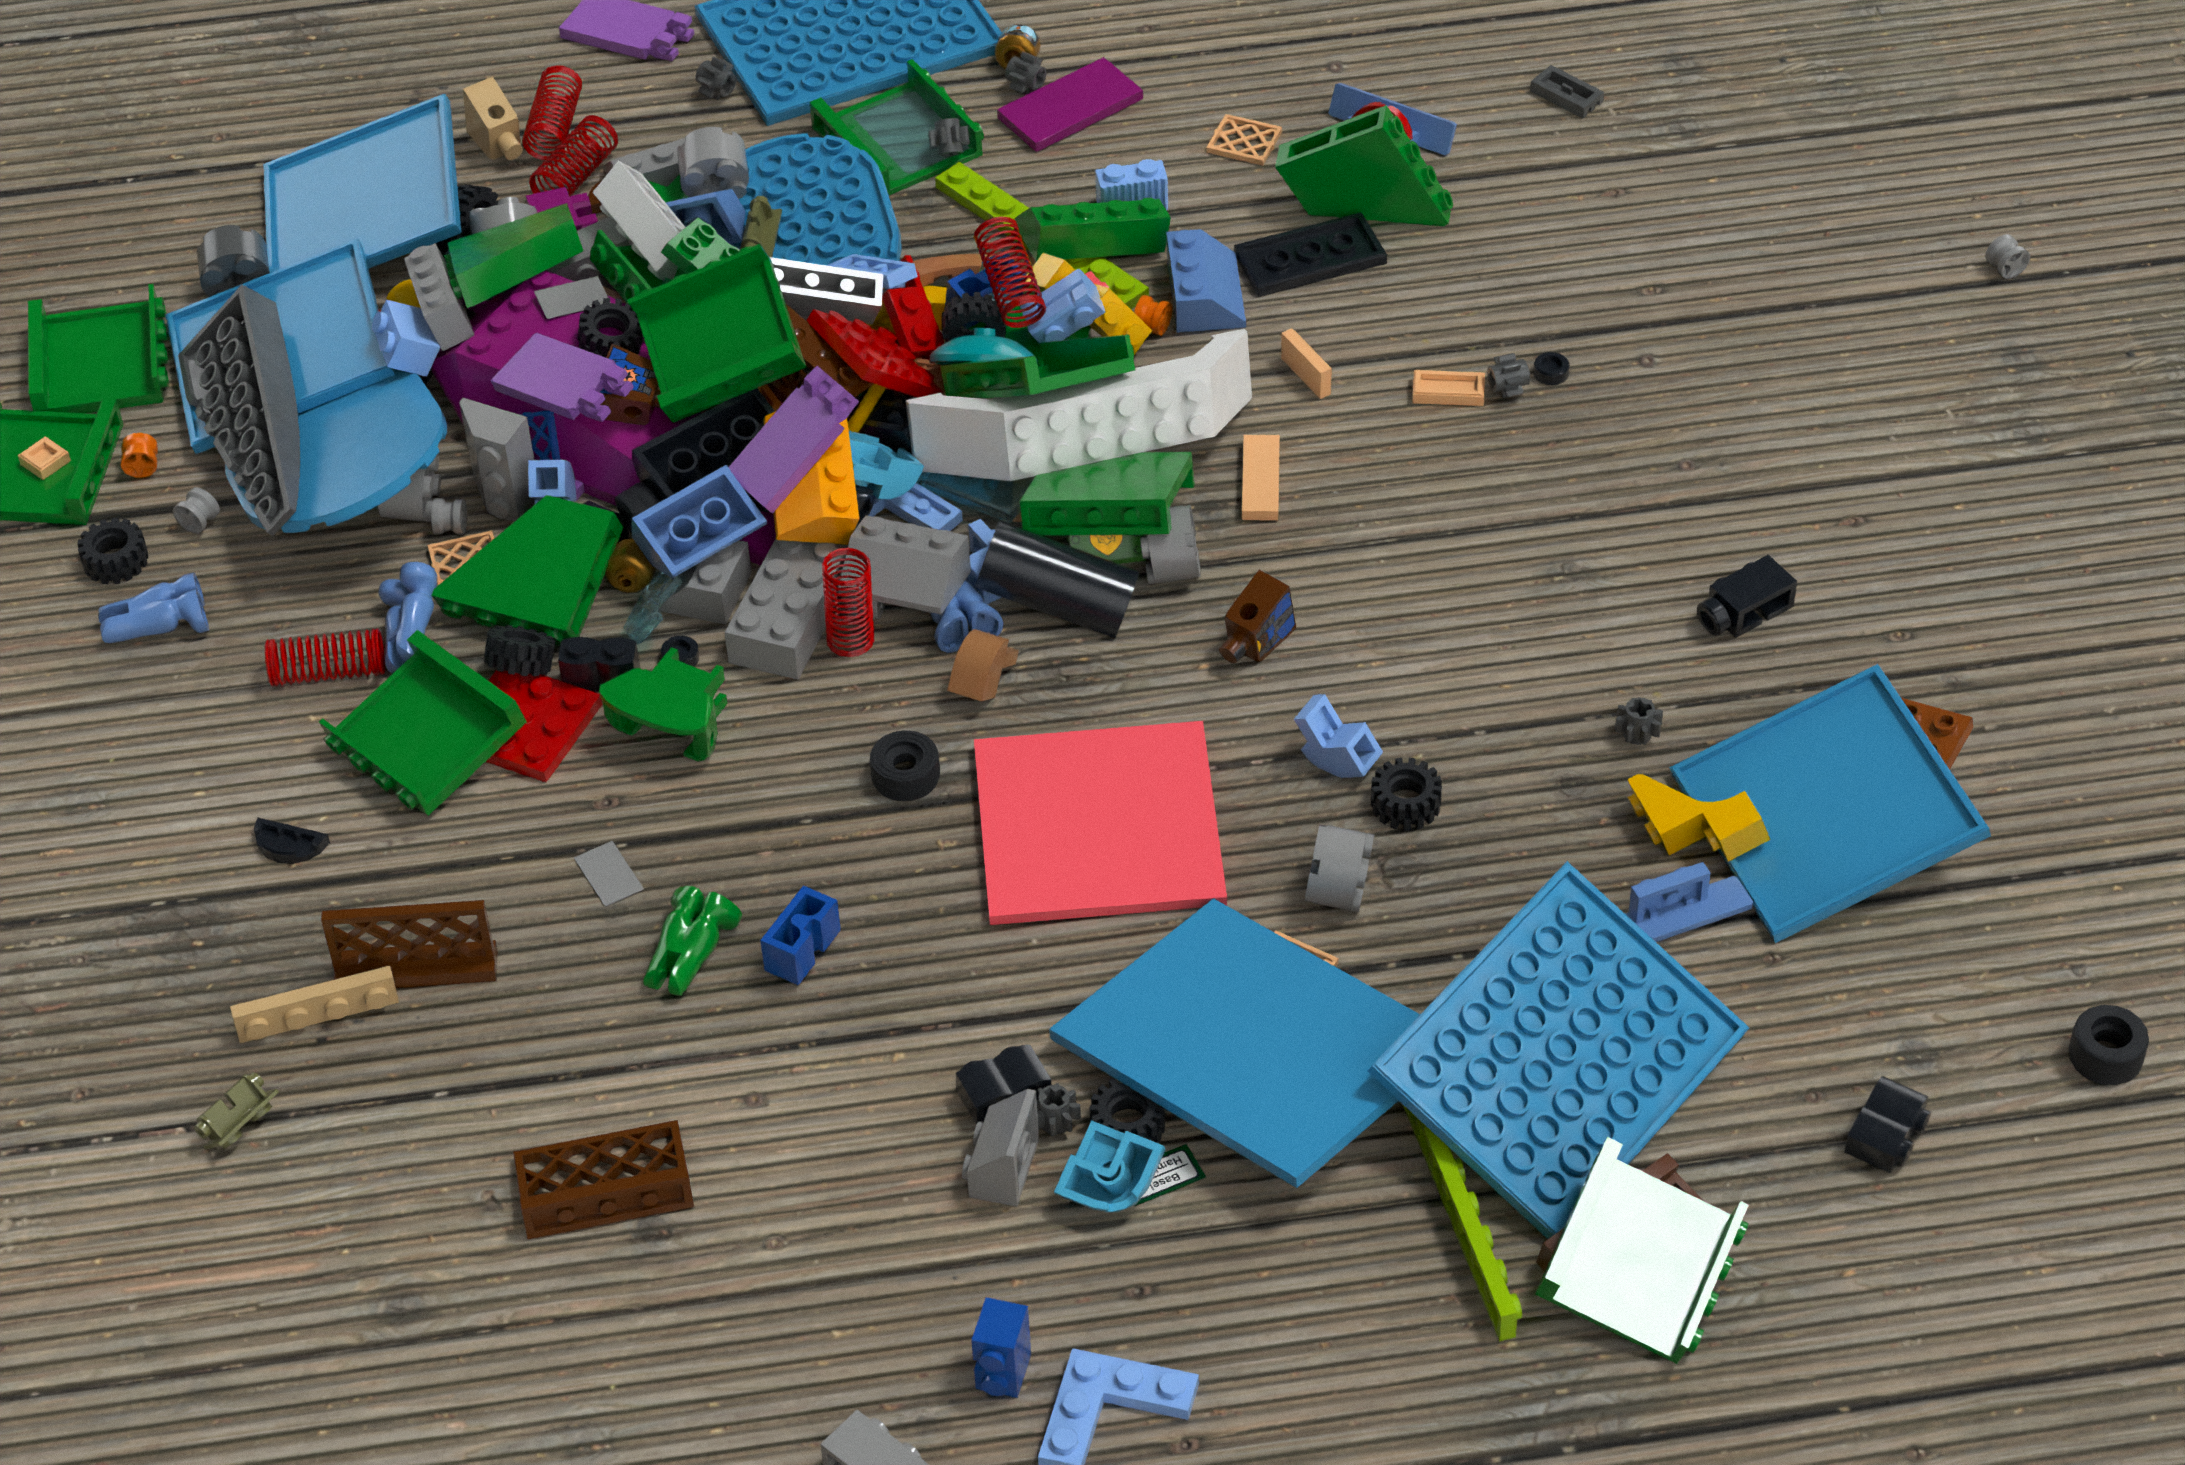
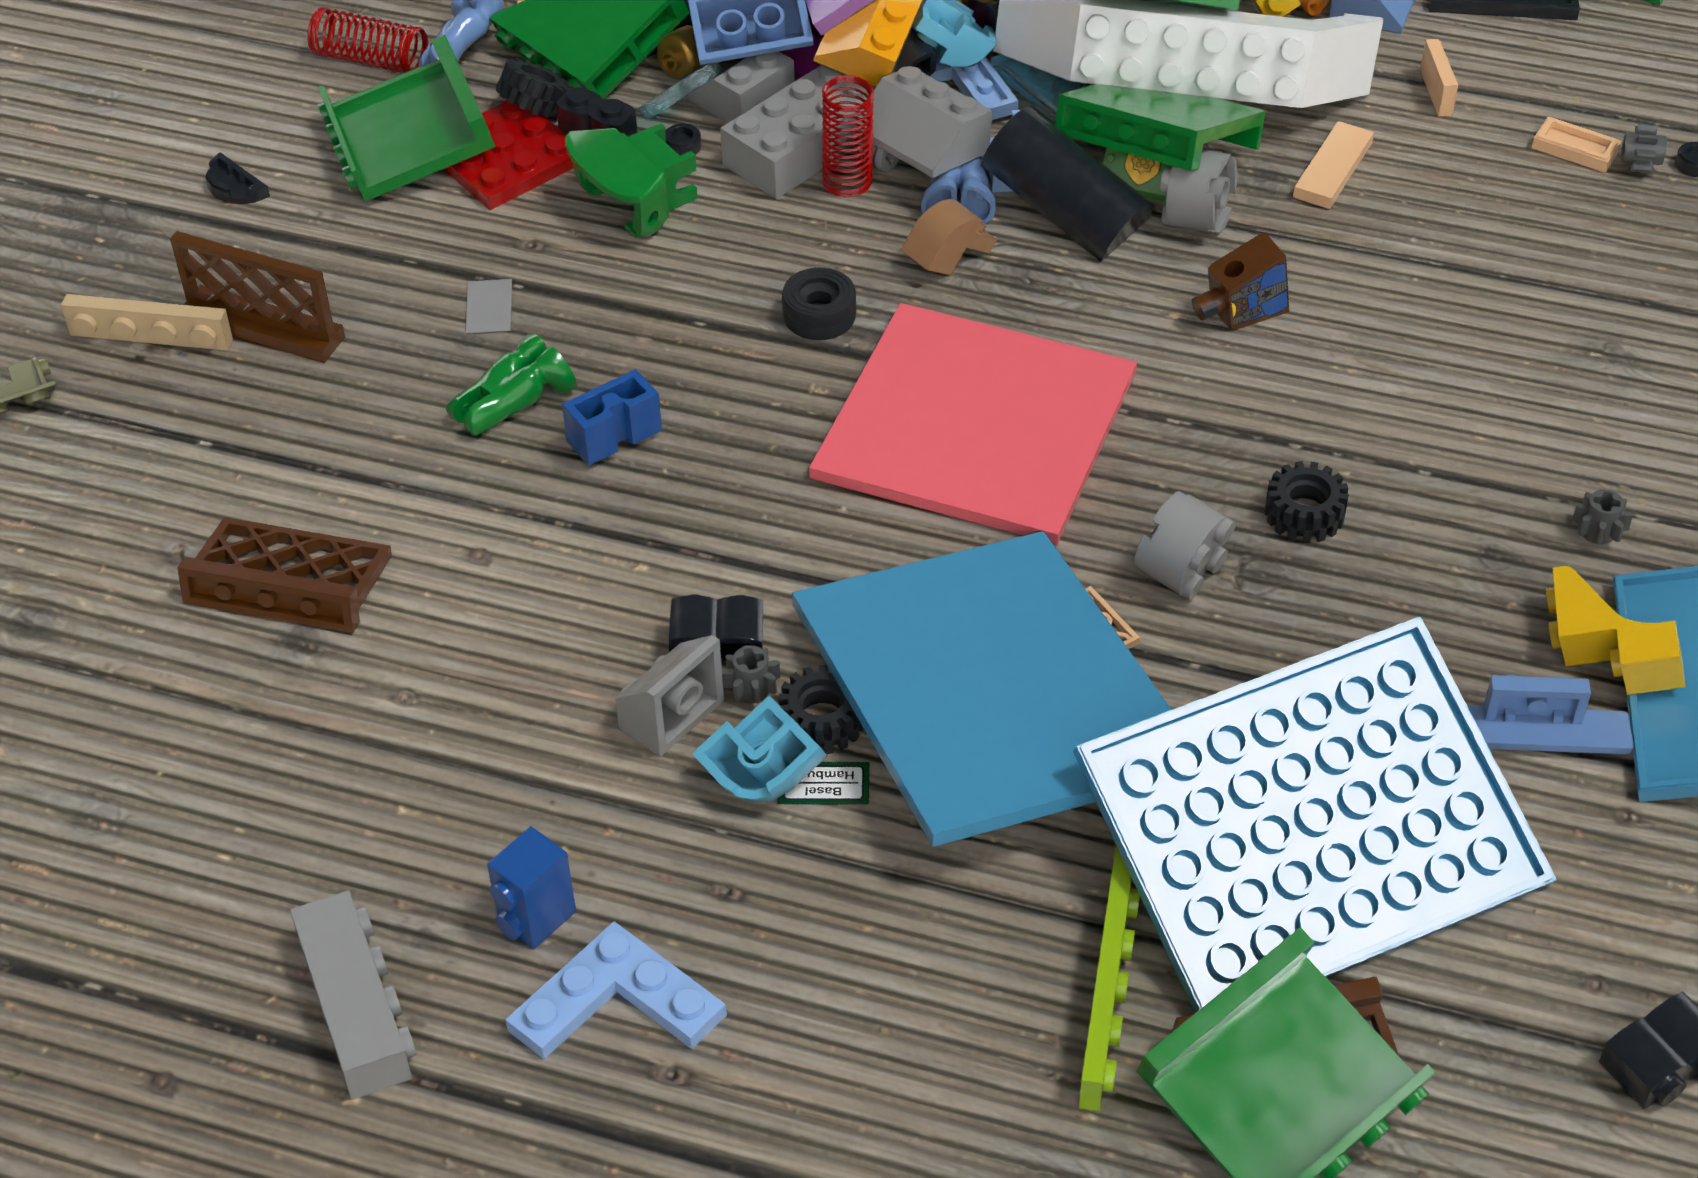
camera: 25 degrees right, 0 degrees up
(1334, 746) = (1254, 427): light blue brick -> none

